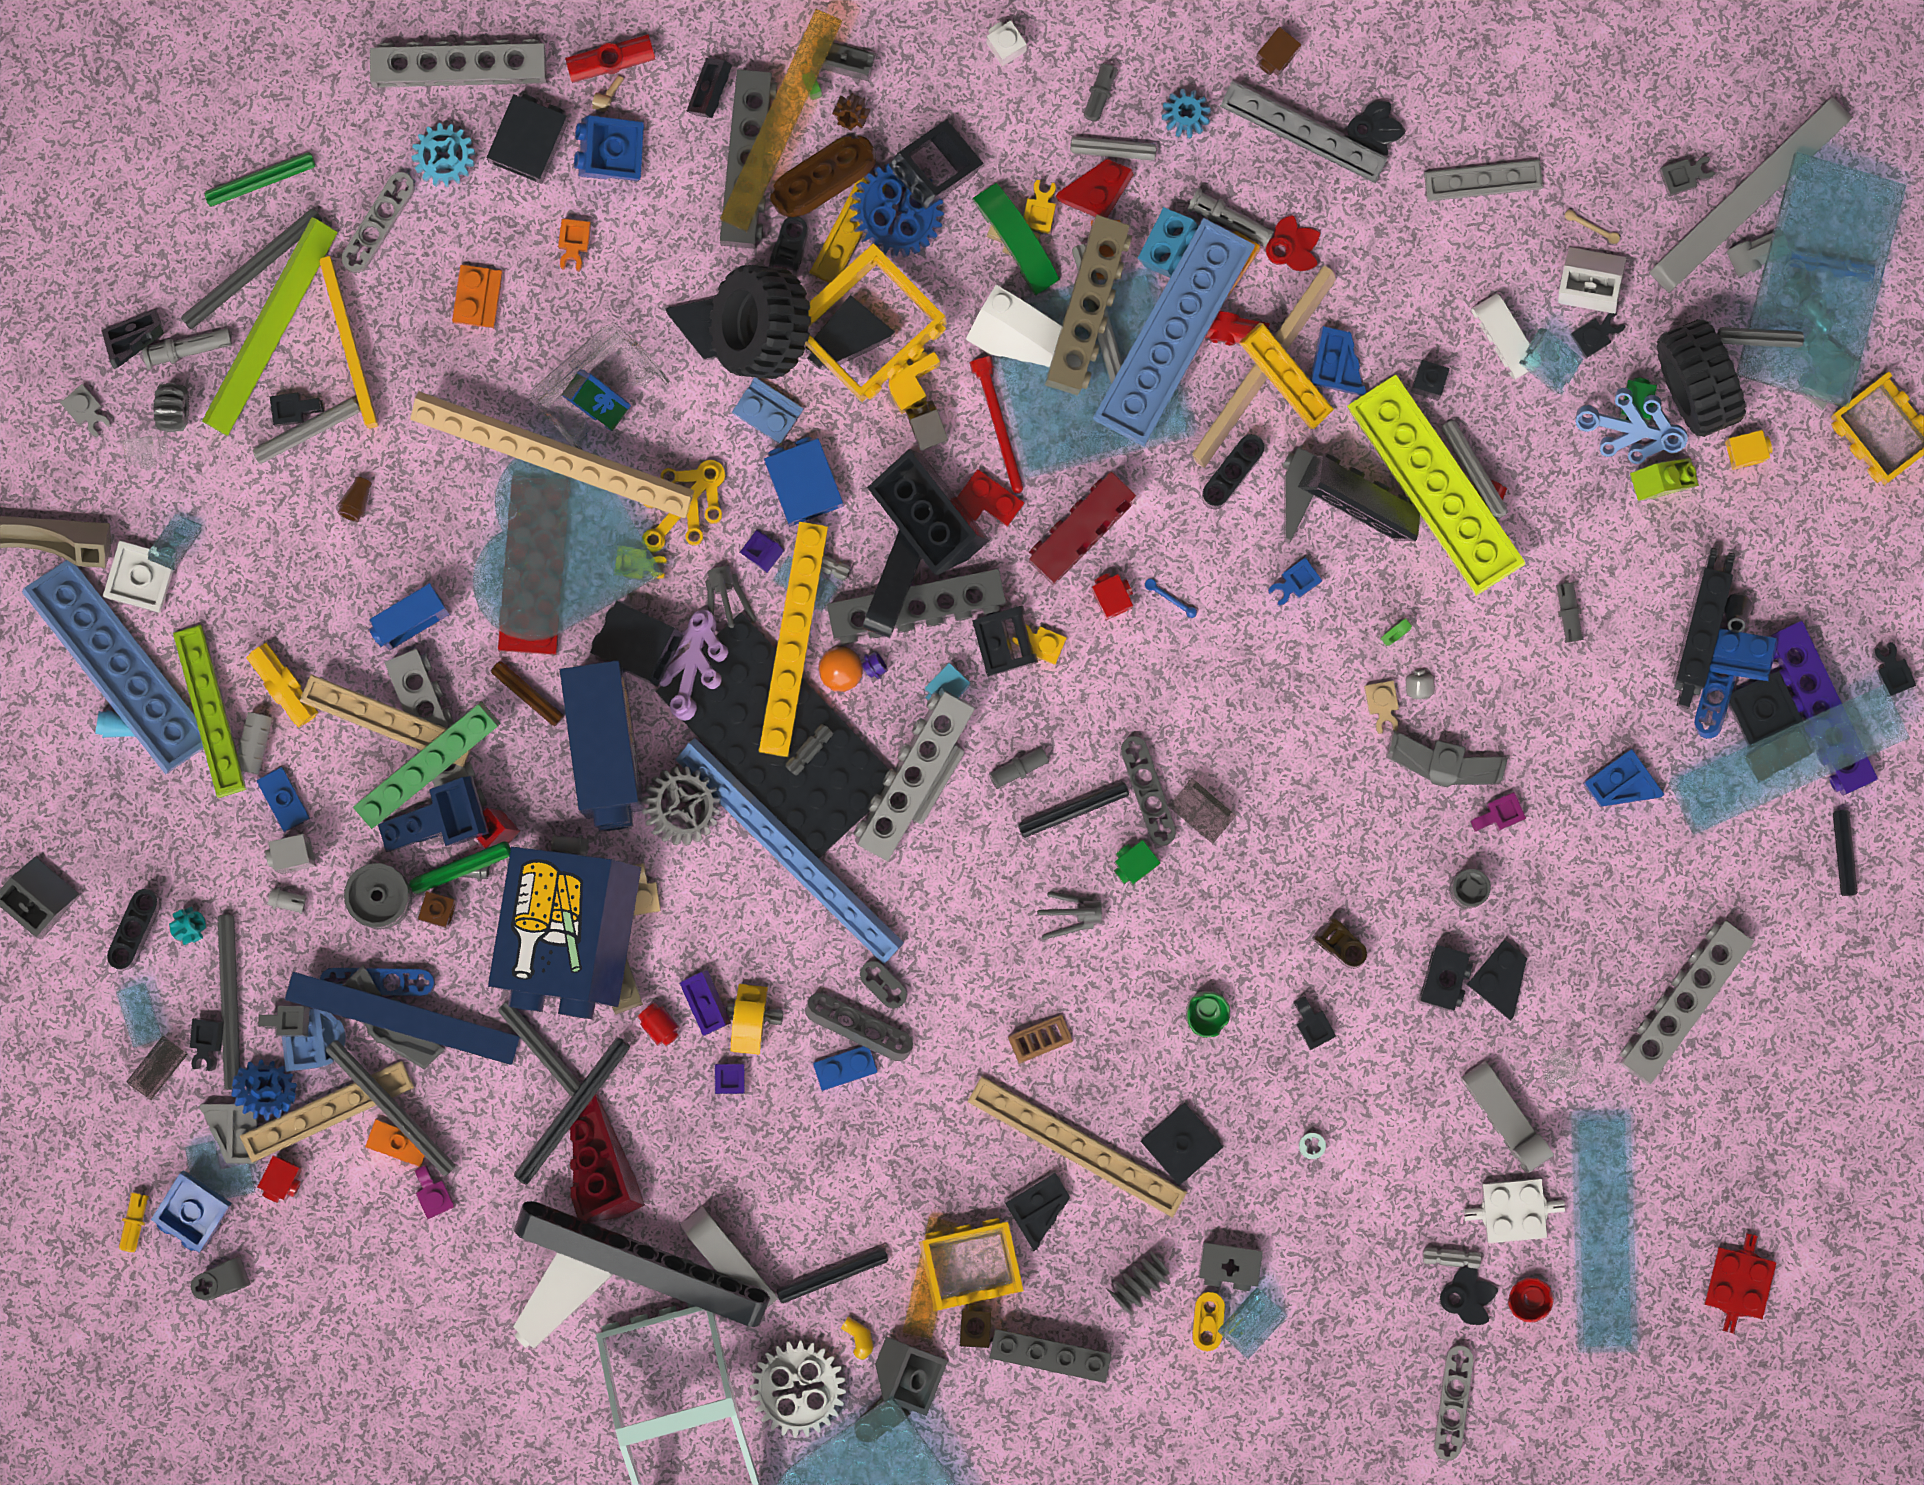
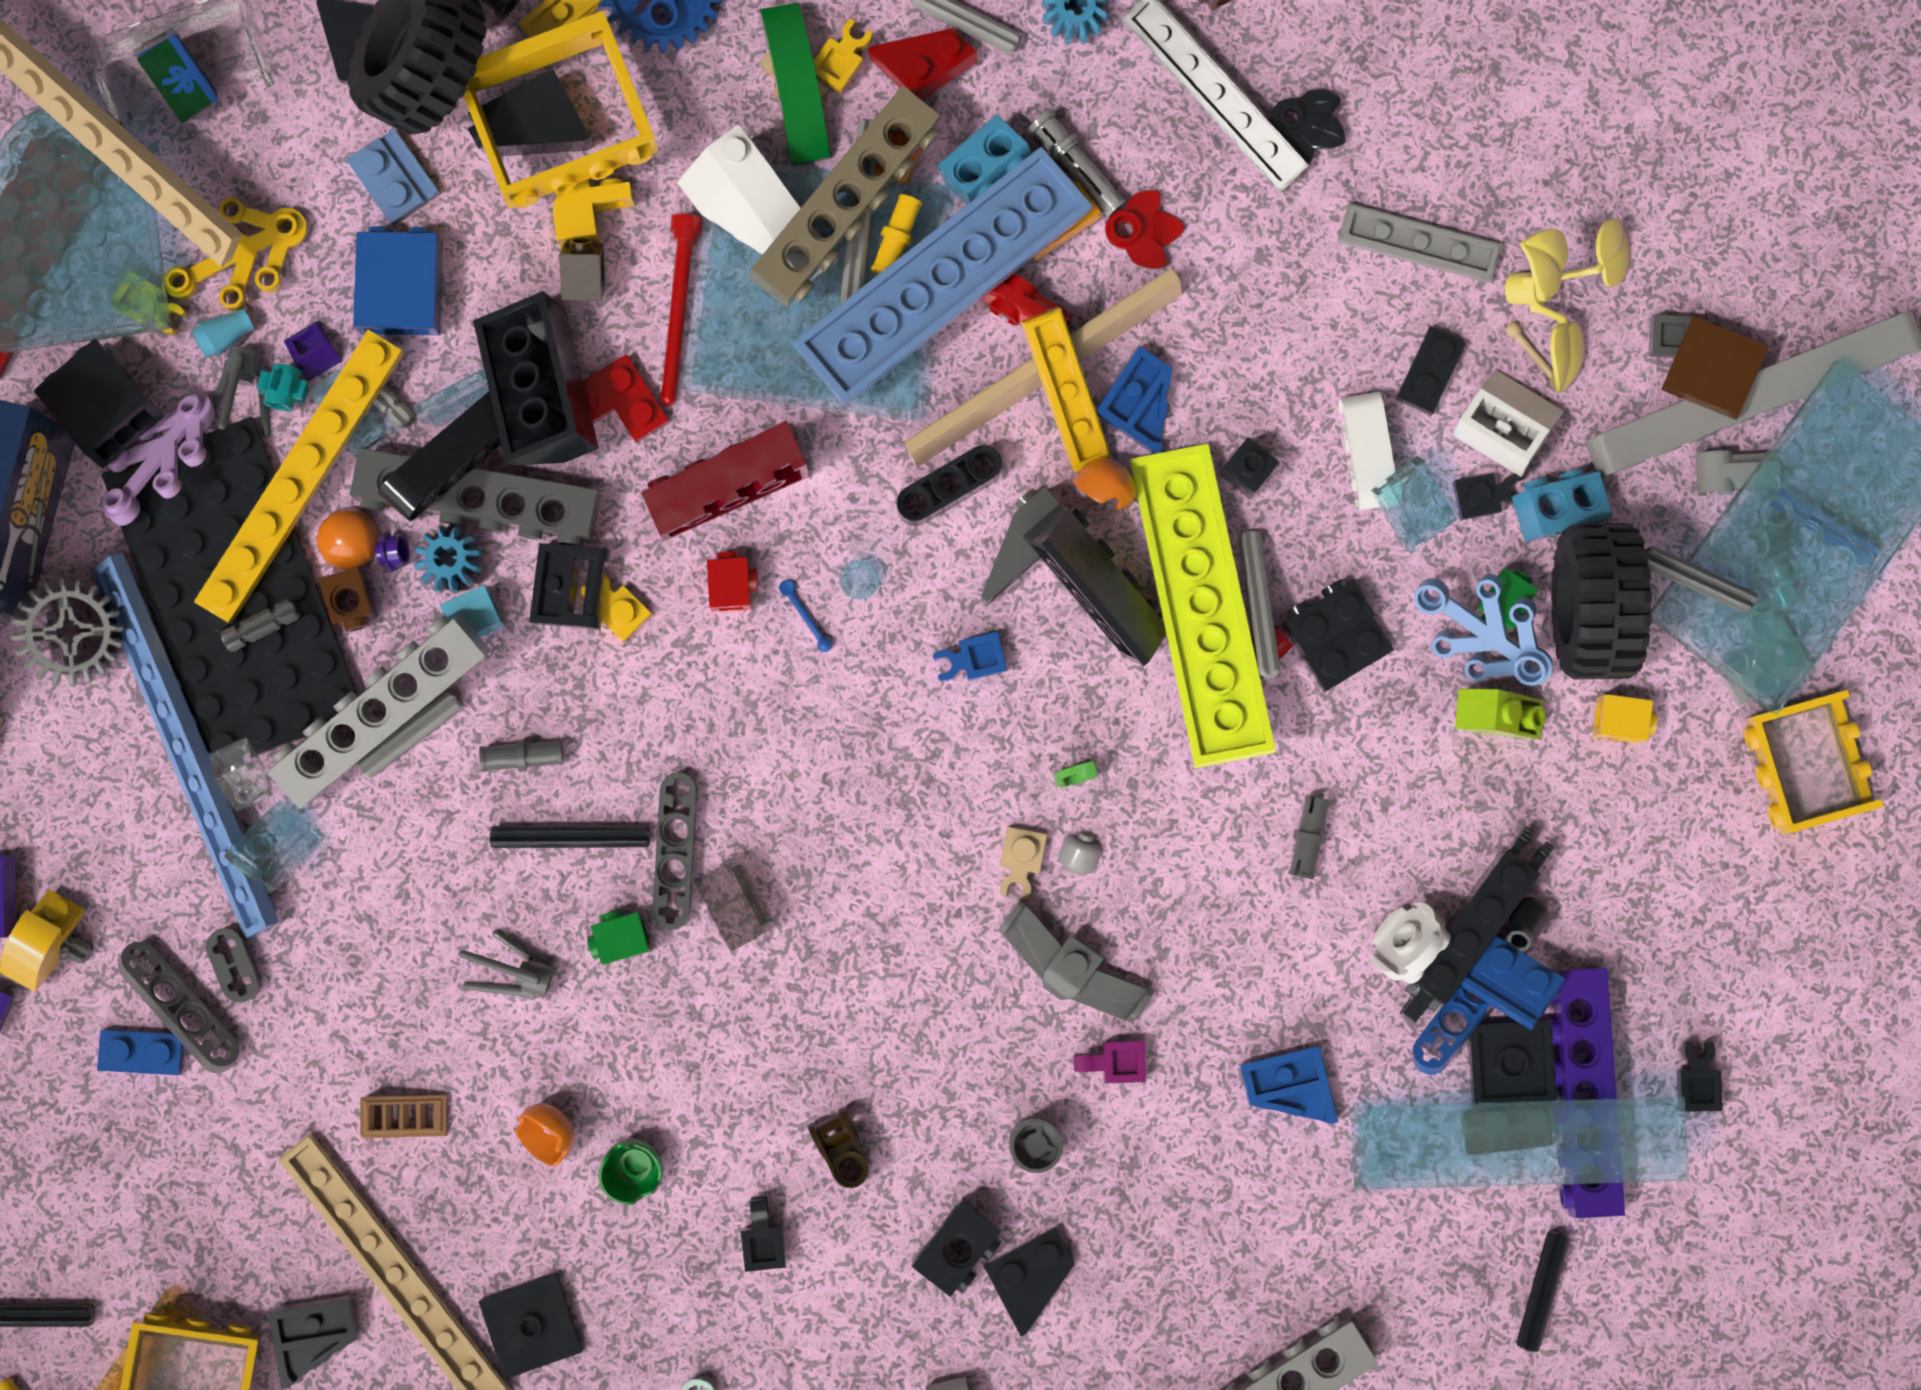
camera: 20 degrees right, 0 degrees up
(696, 563) = (221, 332): none -> medium azure cone
(755, 583) = (283, 387): none -> teal gear
(838, 854) = (241, 774): none -> clear brick
(854, 697) = (336, 587): none -> reddish brown brick
(867, 555) = (440, 407): none -> clear light blue plate
(880, 893) = (274, 846): none -> clear light blue plate
(919, 664) = (451, 544): none -> dark azure gear
(1129, 315) = (897, 233): none -> yellow pin
(1145, 1022) = (546, 1147): none -> orange hair
(1197, 559) = (859, 579): none -> clear light blue plate
(1338, 426) = (1105, 480): none -> orange hair
(1525, 265) = (1430, 370): none -> black plate
(1533, 469) = (1336, 634): none -> black plate
(1577, 177) = (1547, 258): none -> light yellow plant
(1649, 322) = (1561, 504): none -> dark azure brick
(1669, 668) = (1410, 960): none -> white plate
(1715, 189) = (1714, 368): none -> reddish brown tile

